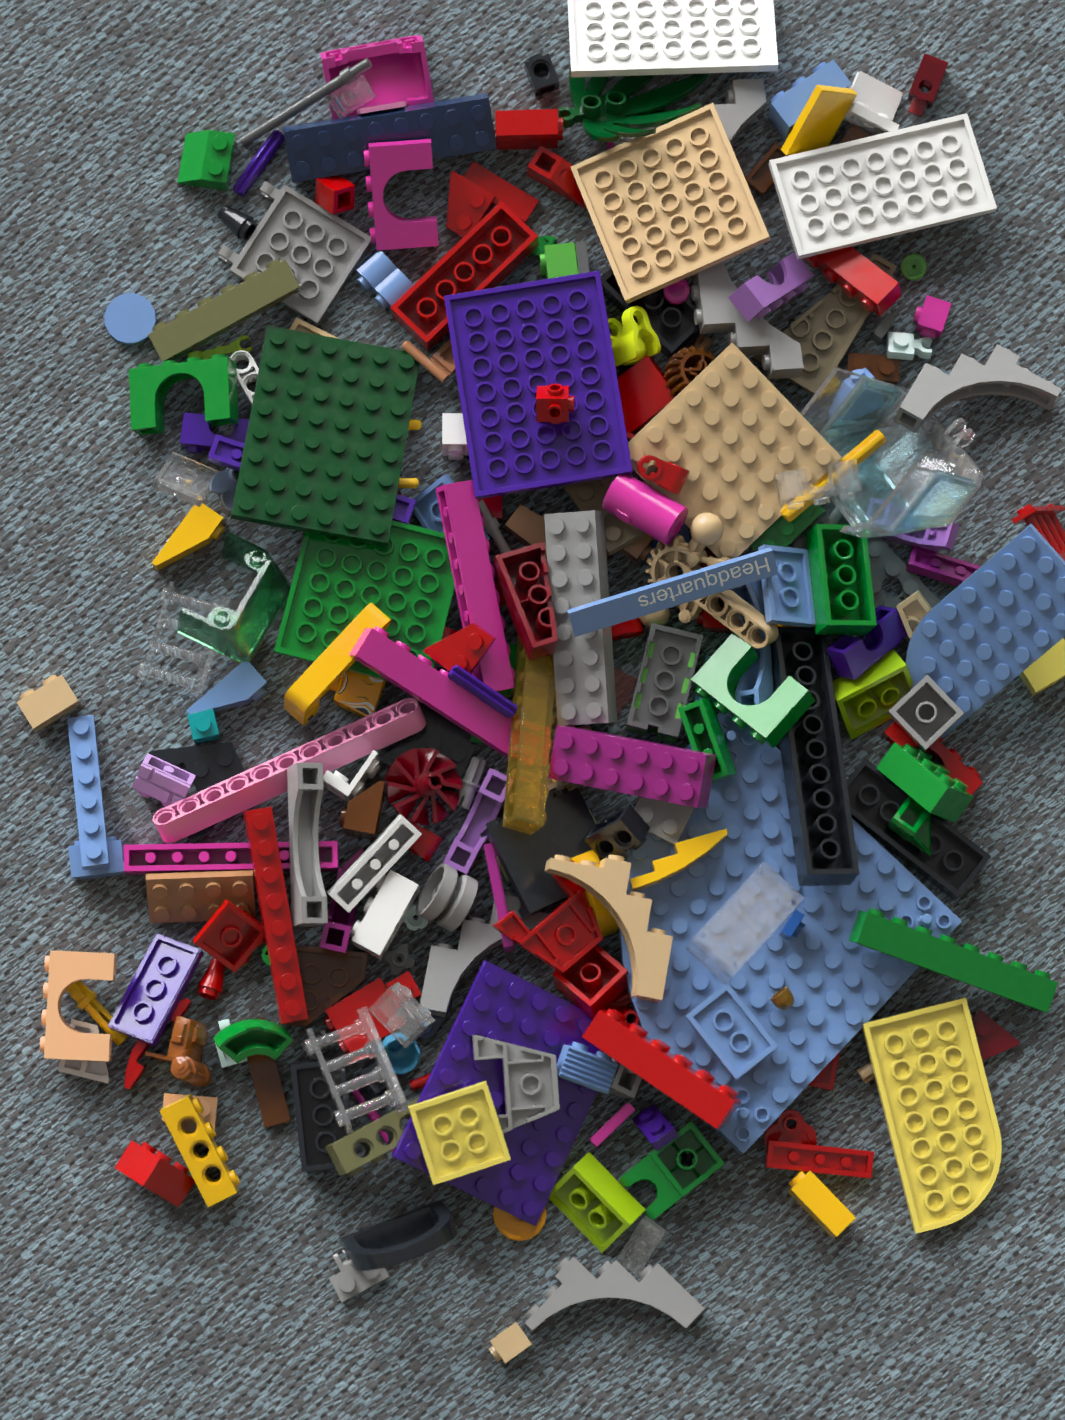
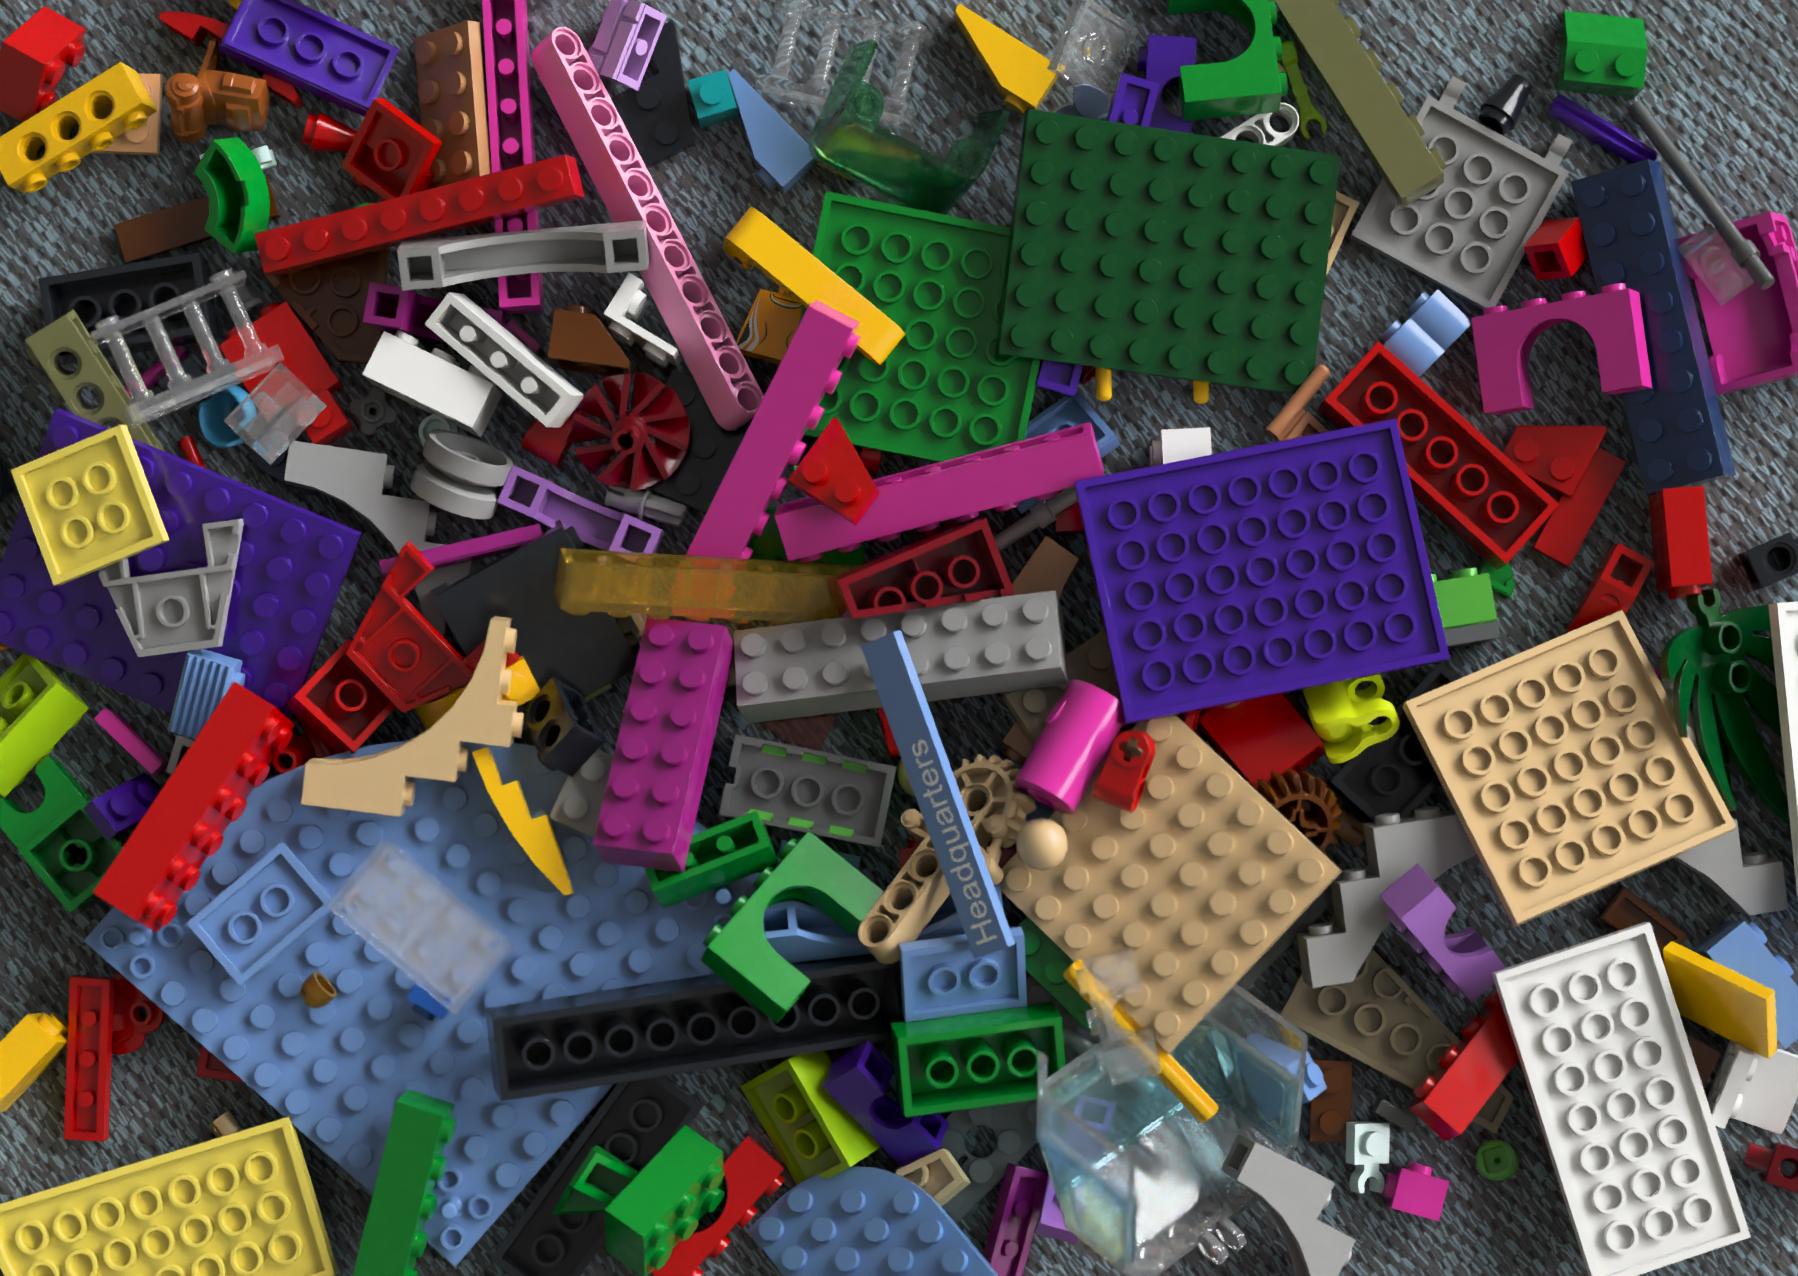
camera: 90 degrees right, 5 degrees up
(381, 107) = (1701, 312): bright pink piece -> none
(482, 691) = (773, 509): dark purple axle -> none
(553, 403) = (1225, 593): red brick -> none
(677, 292) = (1426, 785): dark pink tile -> none
(925, 713) = (772, 1199): light grey brick -> none

